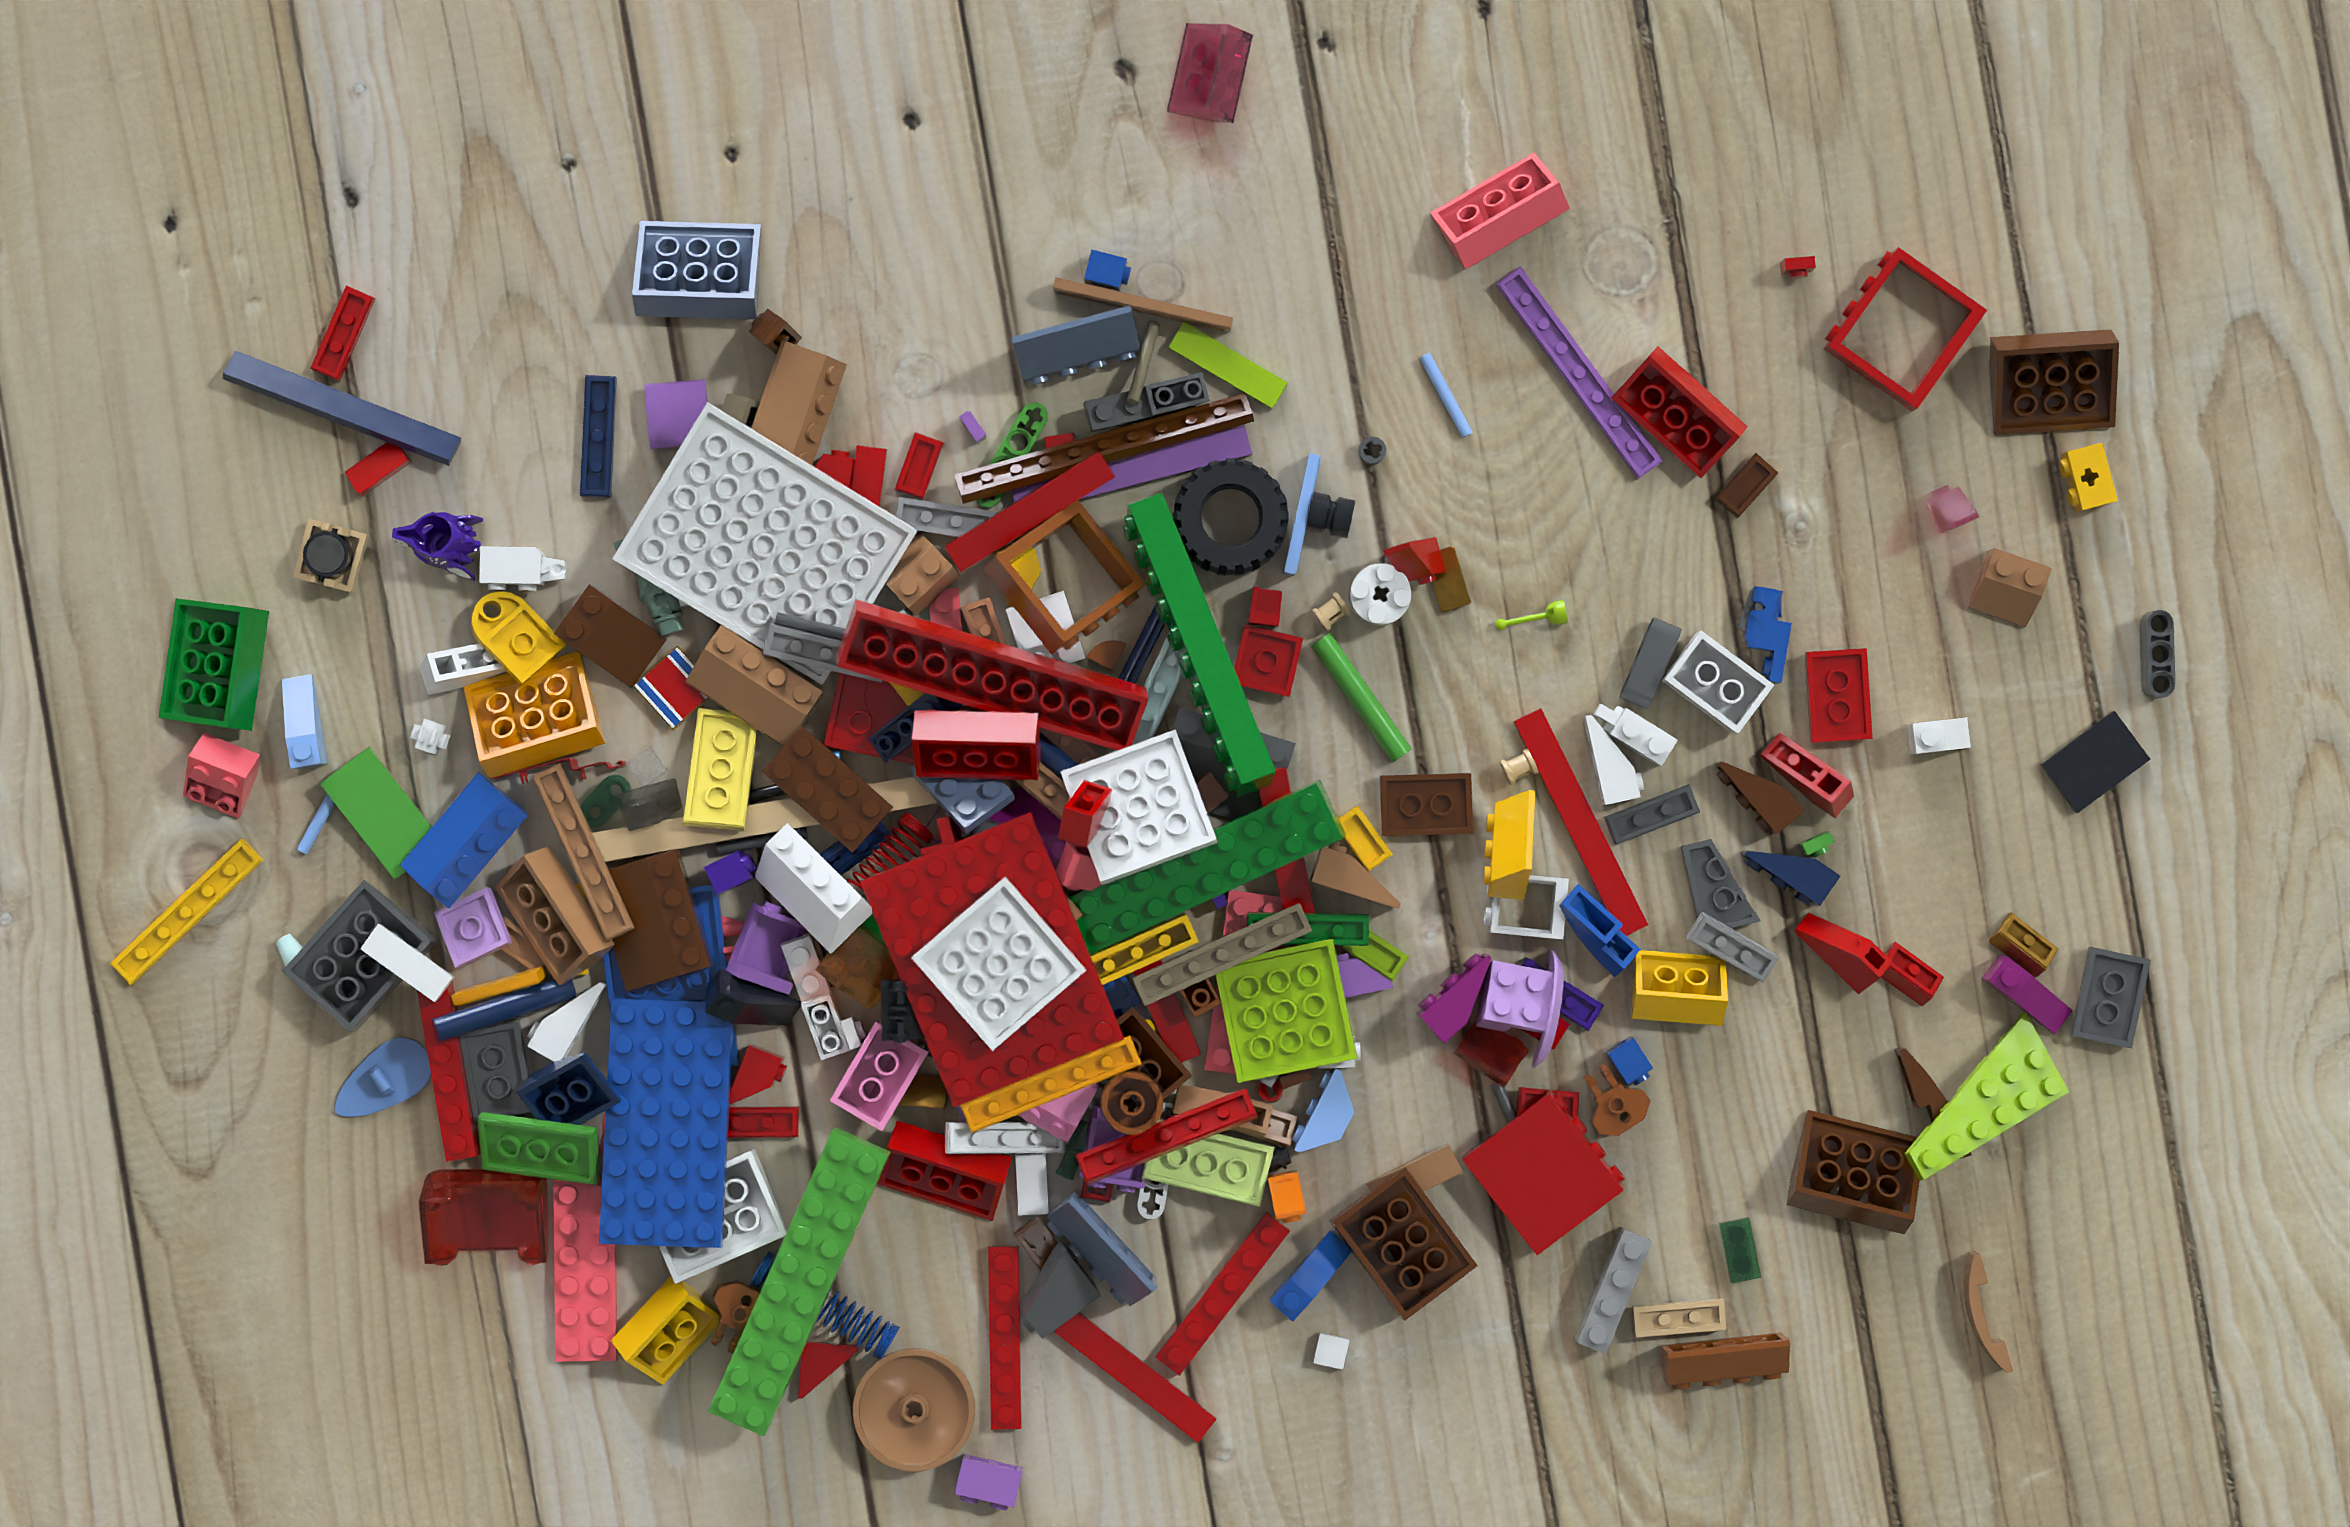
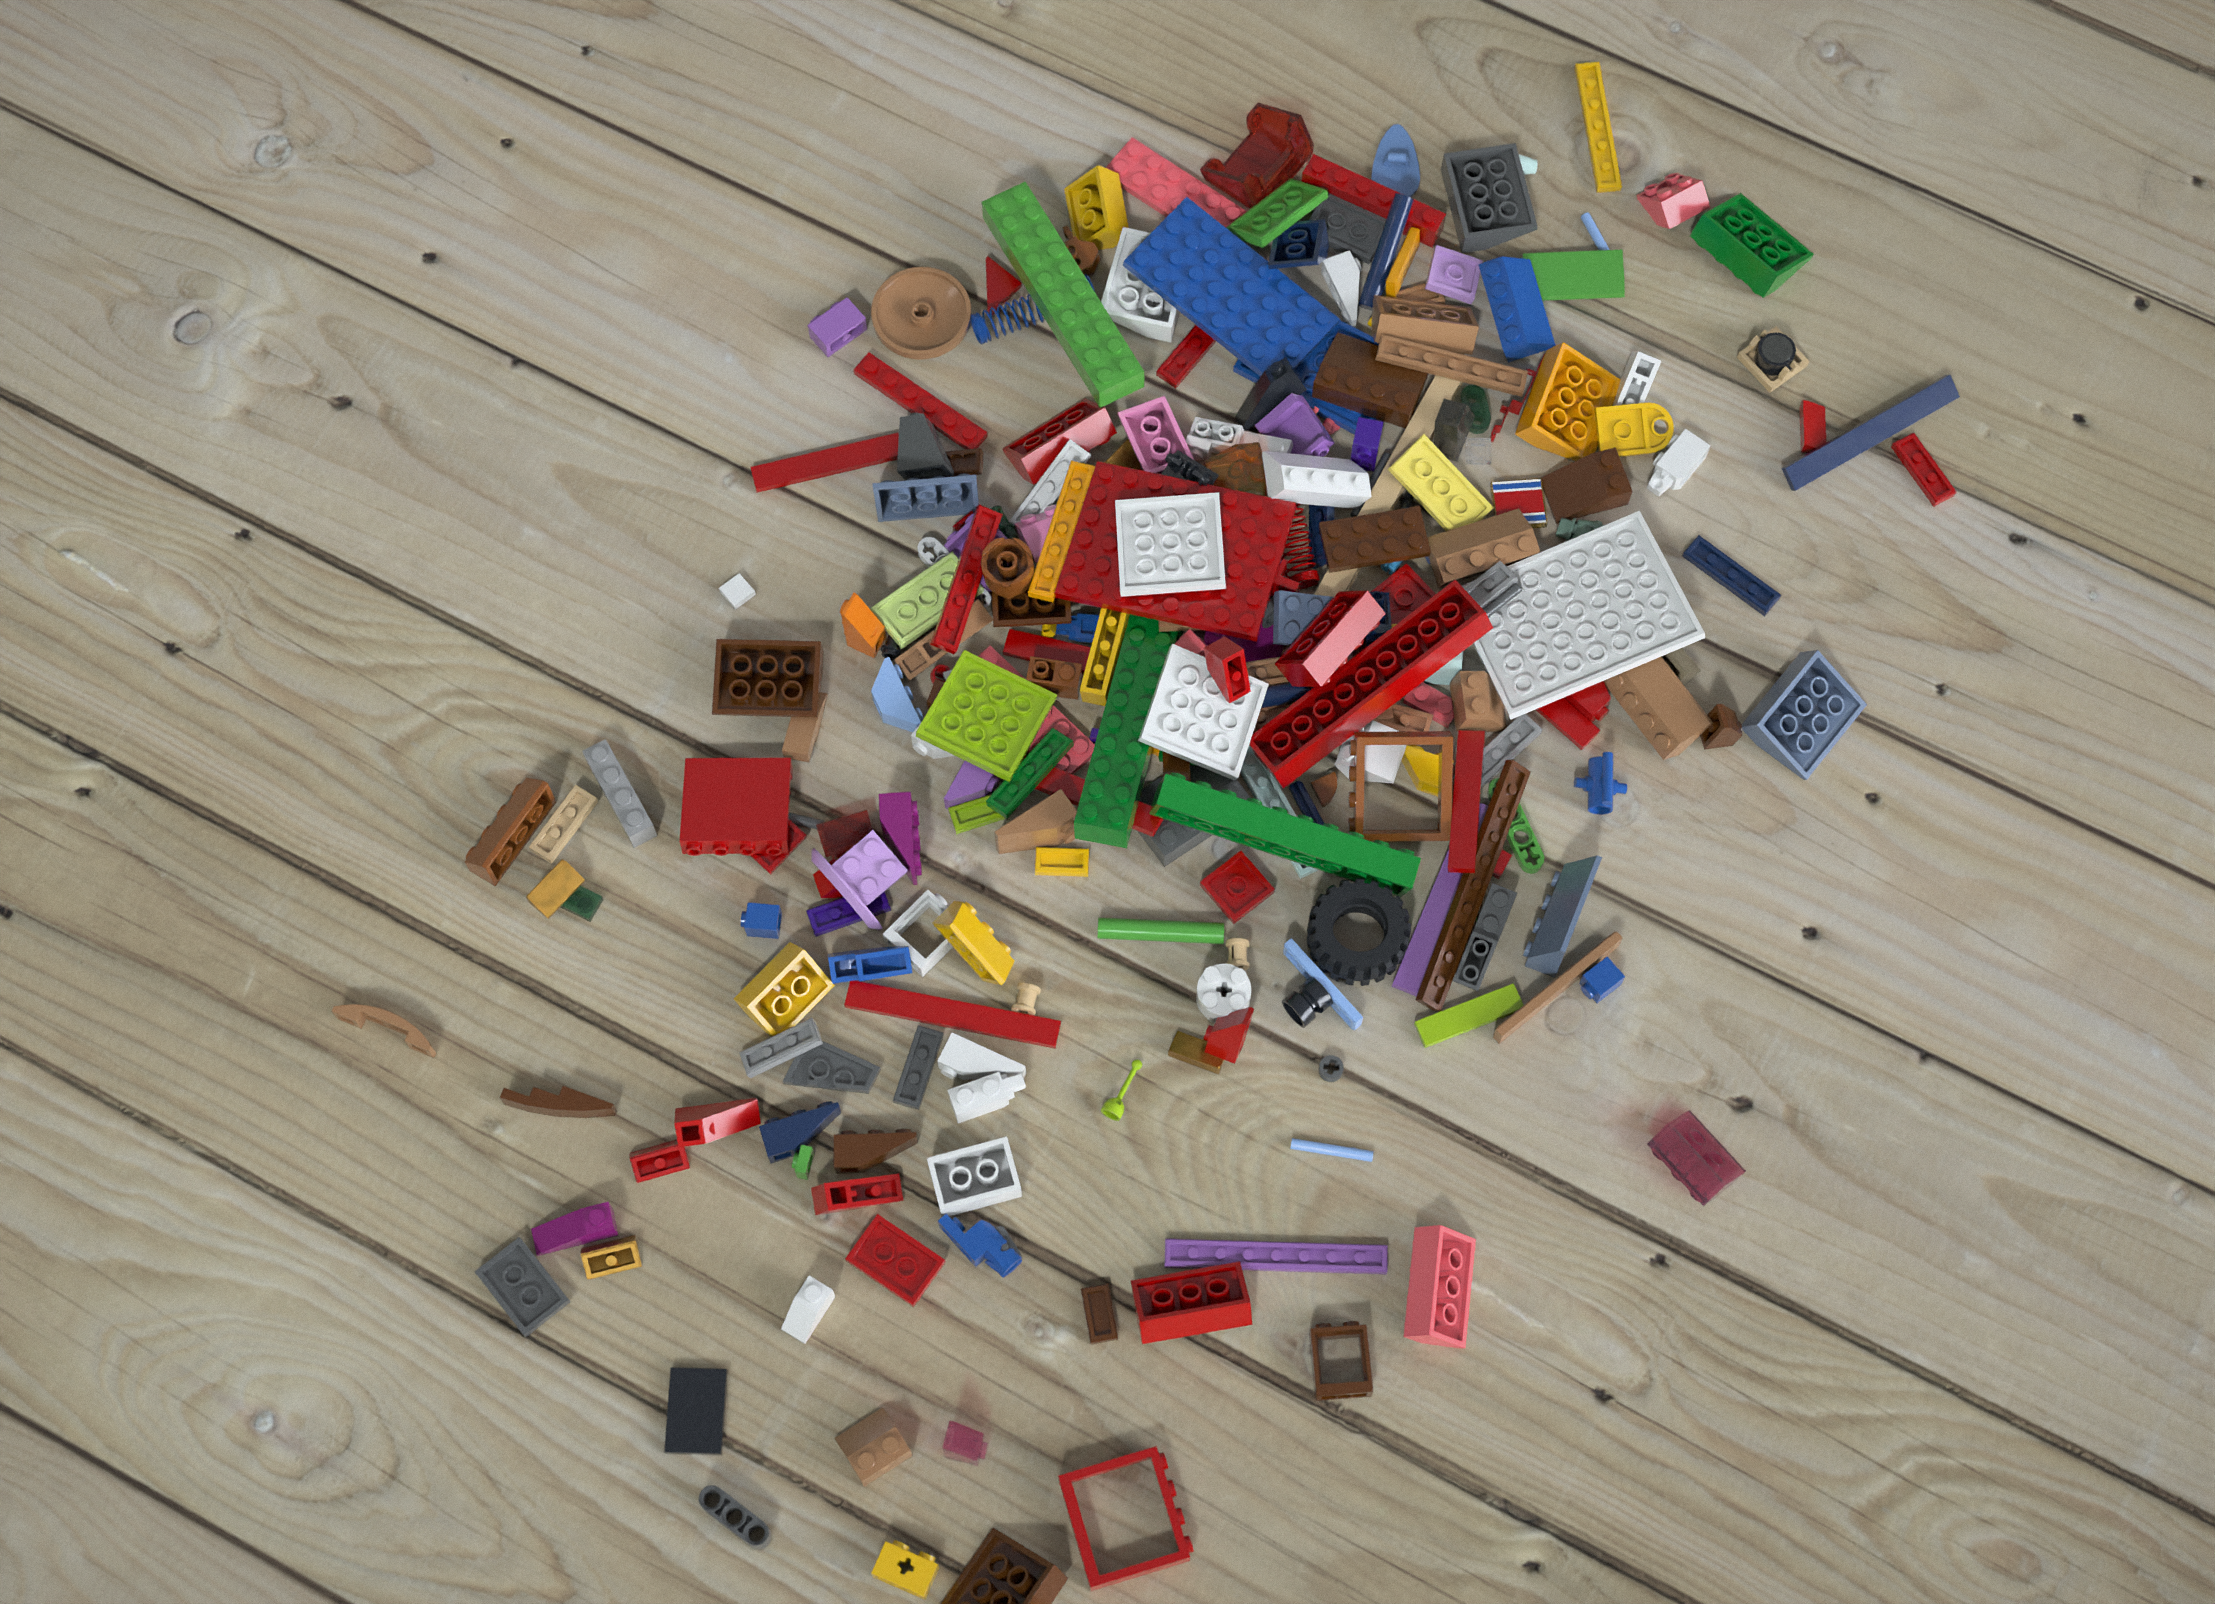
camera: 135 degrees right, 20 degrees down
(302, 723) = (1669, 268): light blue slope -> none
(407, 963) = (1462, 212): white tile -> none
(430, 736) = (1602, 334): white gear -> none
(443, 542) = (1730, 427): dark purple piece -> none
(673, 410) = (1720, 631): medium lavender slope -> none
(757, 1072) = (1219, 374): red slope -> none
(913, 405) = (1600, 784): none -> blue pin
(919, 465) = (1554, 761): red tile -> none
(973, 427) = (1555, 812): medium lavender tile -> none
(1032, 1184) = (1004, 487): white tile -> none
(1143, 363) = (1515, 955): dark tan bar -> none
(1222, 954) = (1058, 699): dark tan plate -> none
(1222, 1293) = (830, 544): red plate -> none
(1265, 607) = (1276, 912): red panel -> none
(1310, 1276) = (796, 605): blue slope -> none
(1426, 804) = (1051, 918): reddish brown plate -> none
(1615, 1101) = (739, 886): dark orange hinge -> none
(1650, 663) = (1026, 1145): dark grey beam -> none
(1656, 229) = (1344, 1390): none -> reddish brown window
(1748, 1268) = (555, 888): none -> pearl gold slope
(1798, 266) = (1232, 1474): red plate -> none
(1854, 1173) = (557, 1015): reddish brown slope -> none
(1997, 1095) = (524, 1153): lime wing -> none

